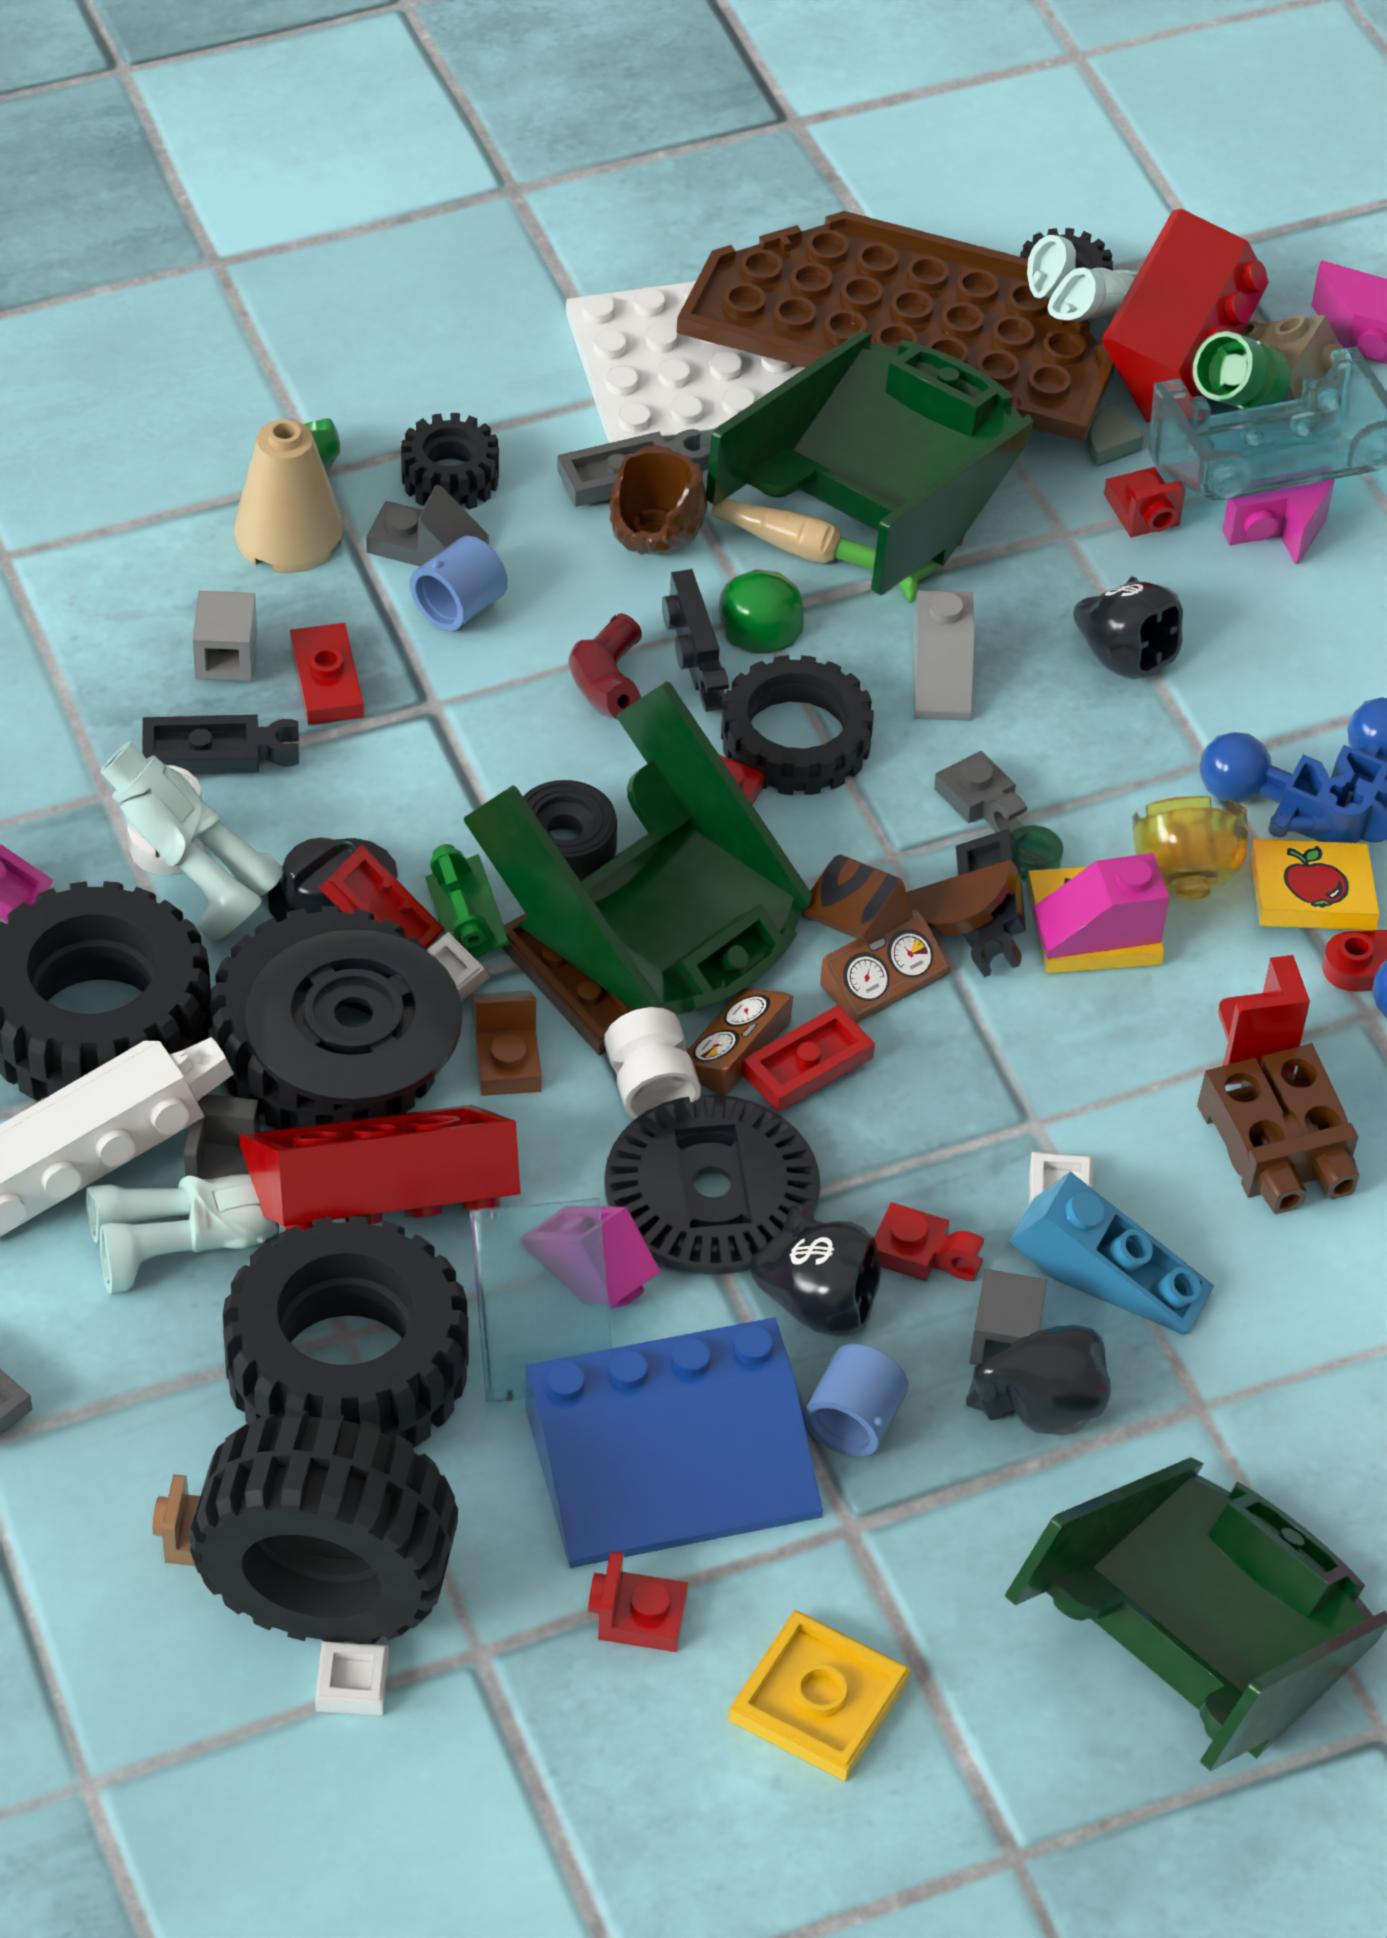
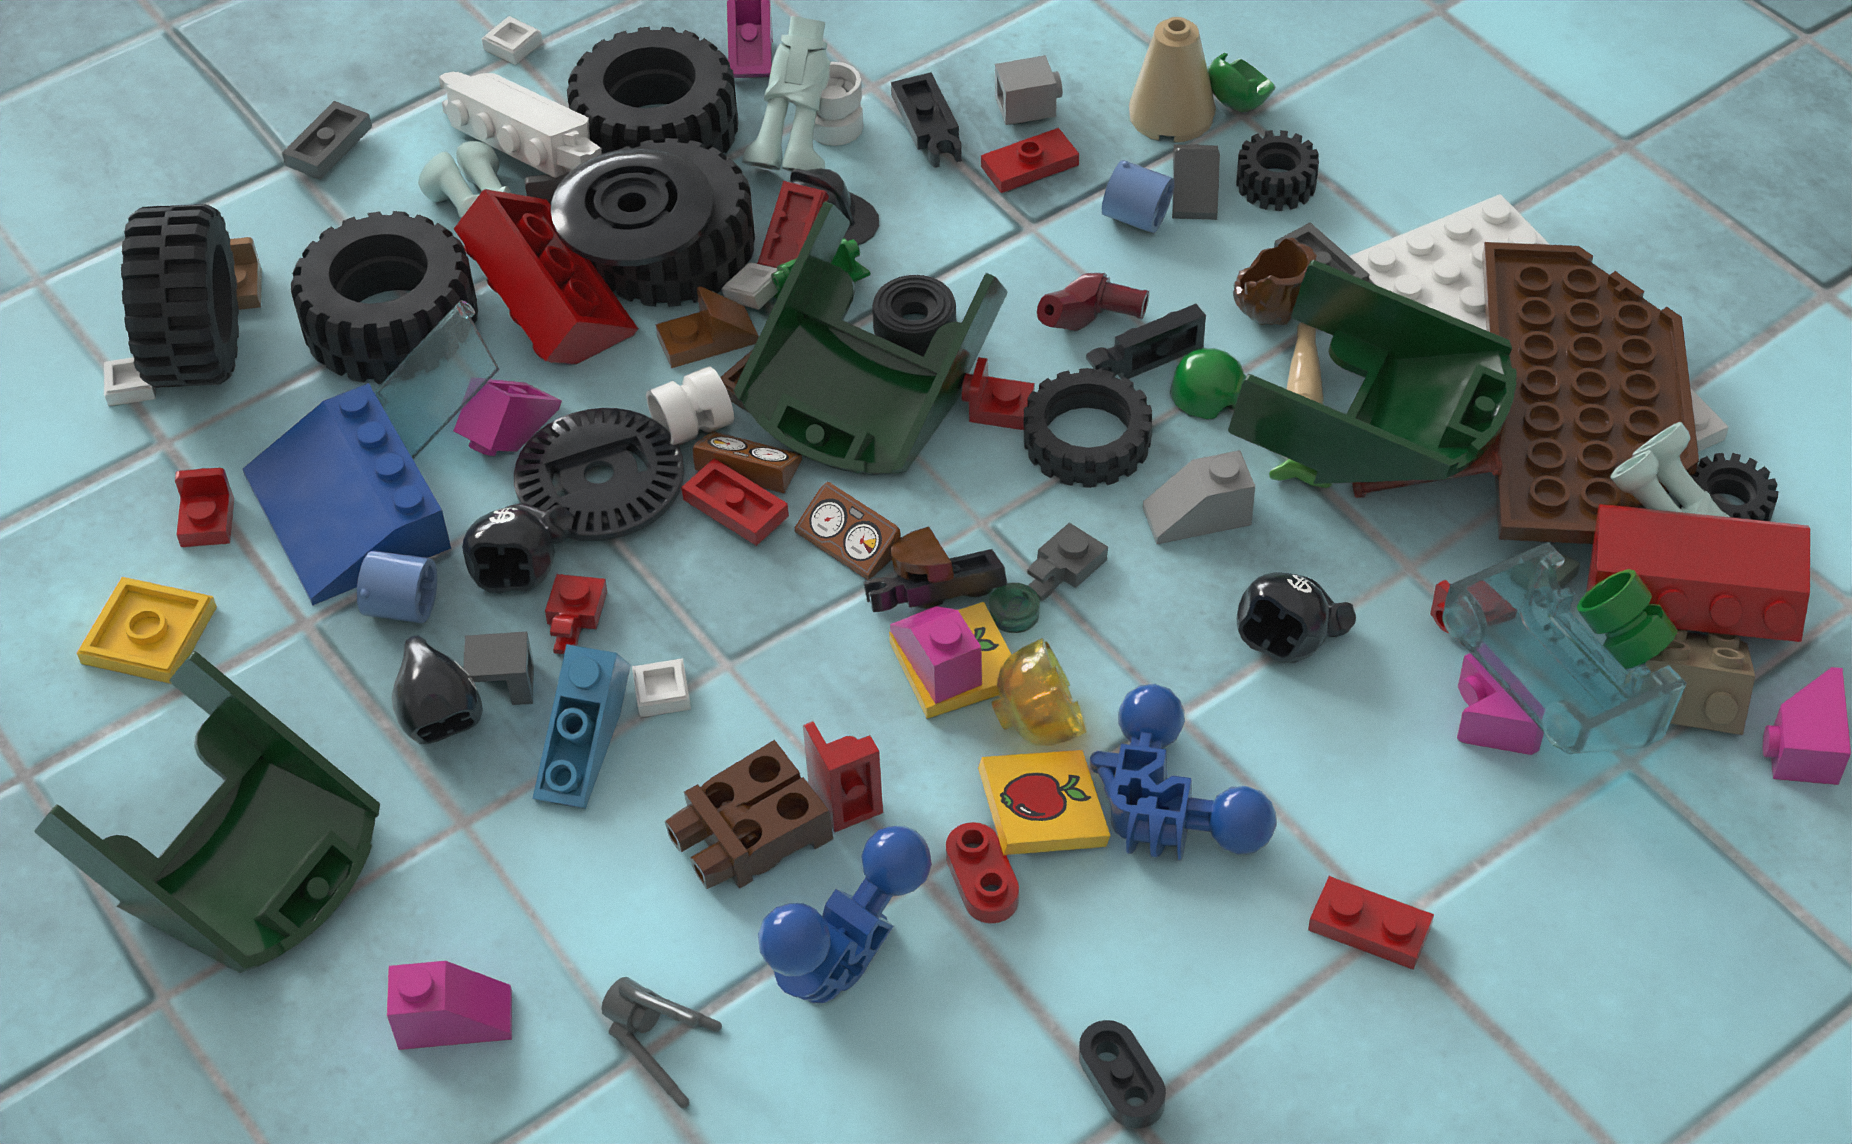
camera: 80 degrees right, 0 degrees up
(858, 900) = (895, 493): reddish brown slope -> none

